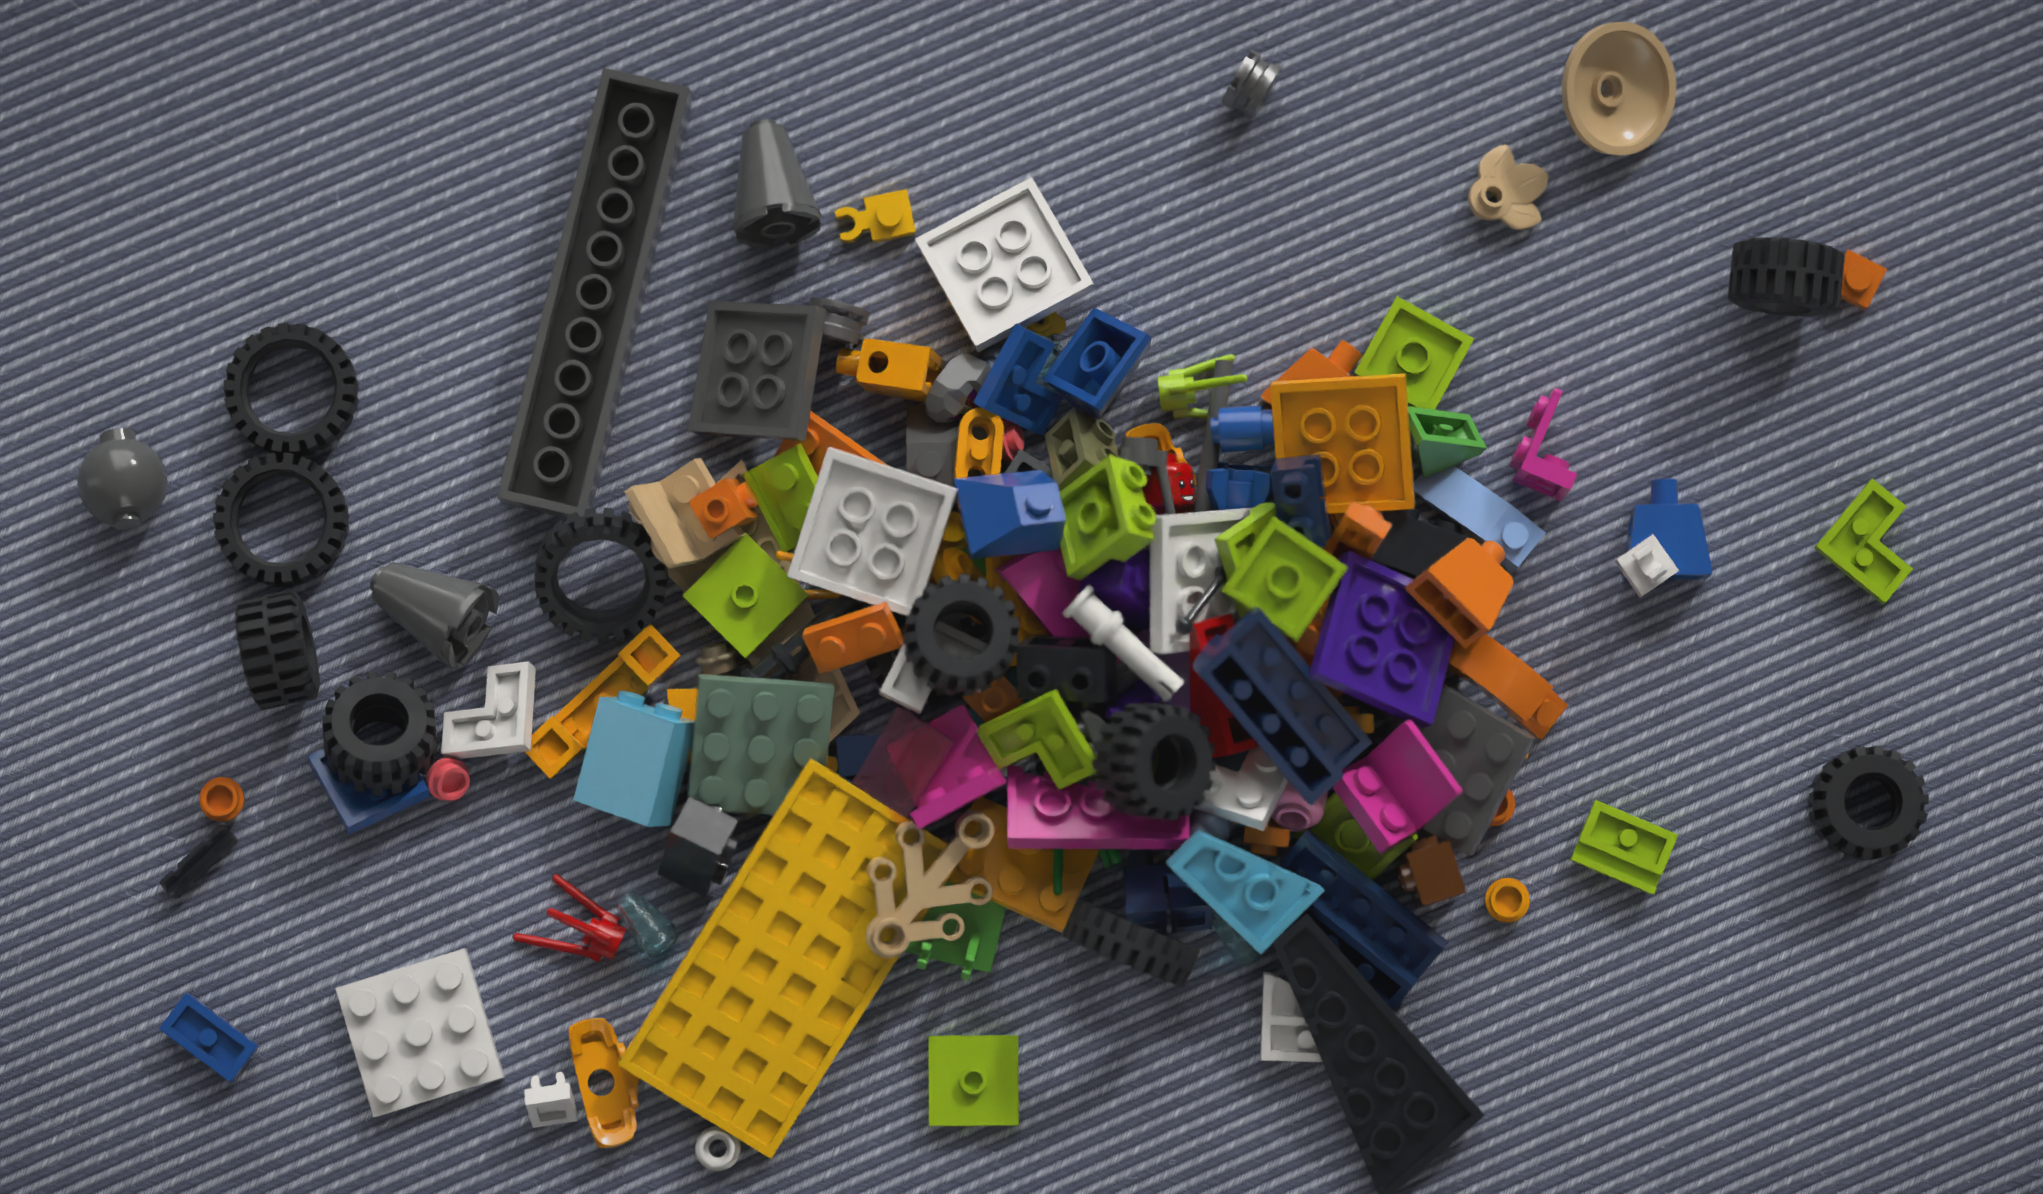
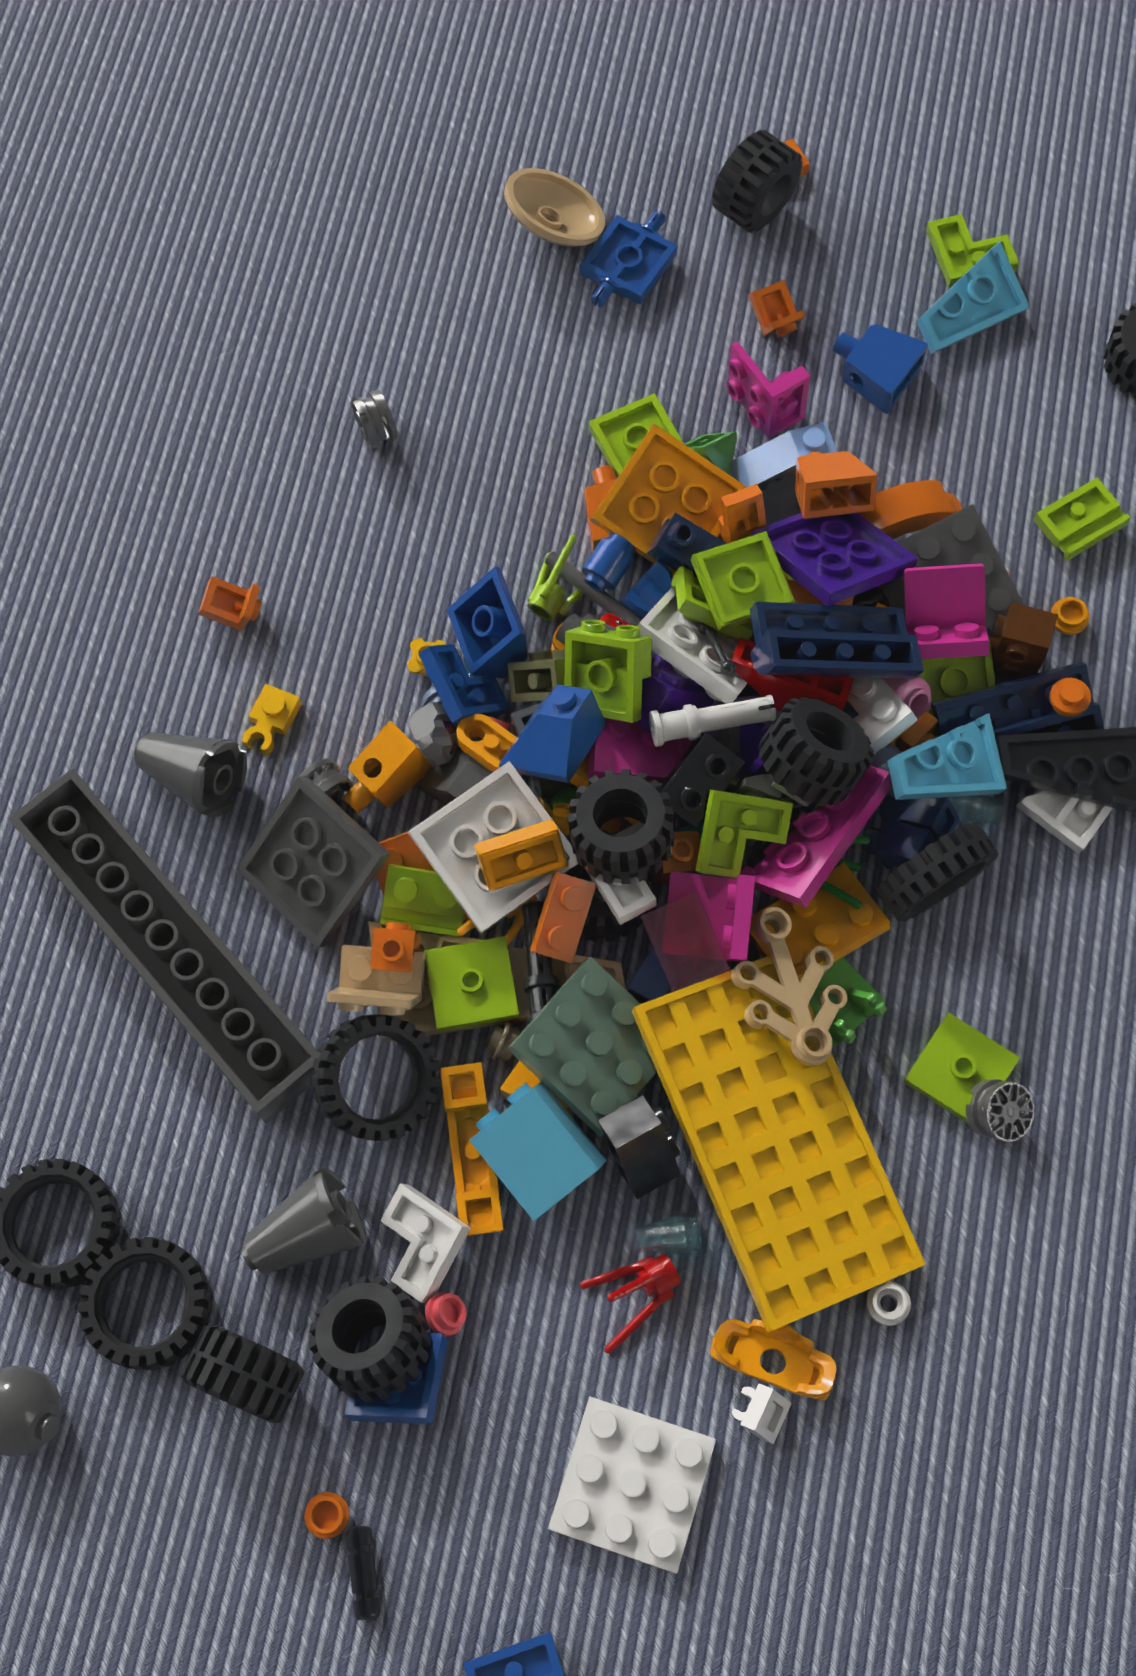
camera: 50 degrees left, 15 degrees down
(878, 561) = (521, 855): none -> light orange slope
(946, 1150) = (1009, 1121): none -> flat silver wheel
(963, 94) = (230, 603): none -> orange bracket
(1005, 264) = (370, 650): white plate -> none
(1396, 955) = (1070, 697): none -> orange plate
(1513, 187) = (568, 319): tan plate -> none
(1617, 202) = (628, 259): none -> blue plate
(1646, 565) = (894, 375): white tile -> none
(1658, 393) = (775, 309): none -> orange bracket
(1803, 587) = (975, 302): none -> medium azure wing

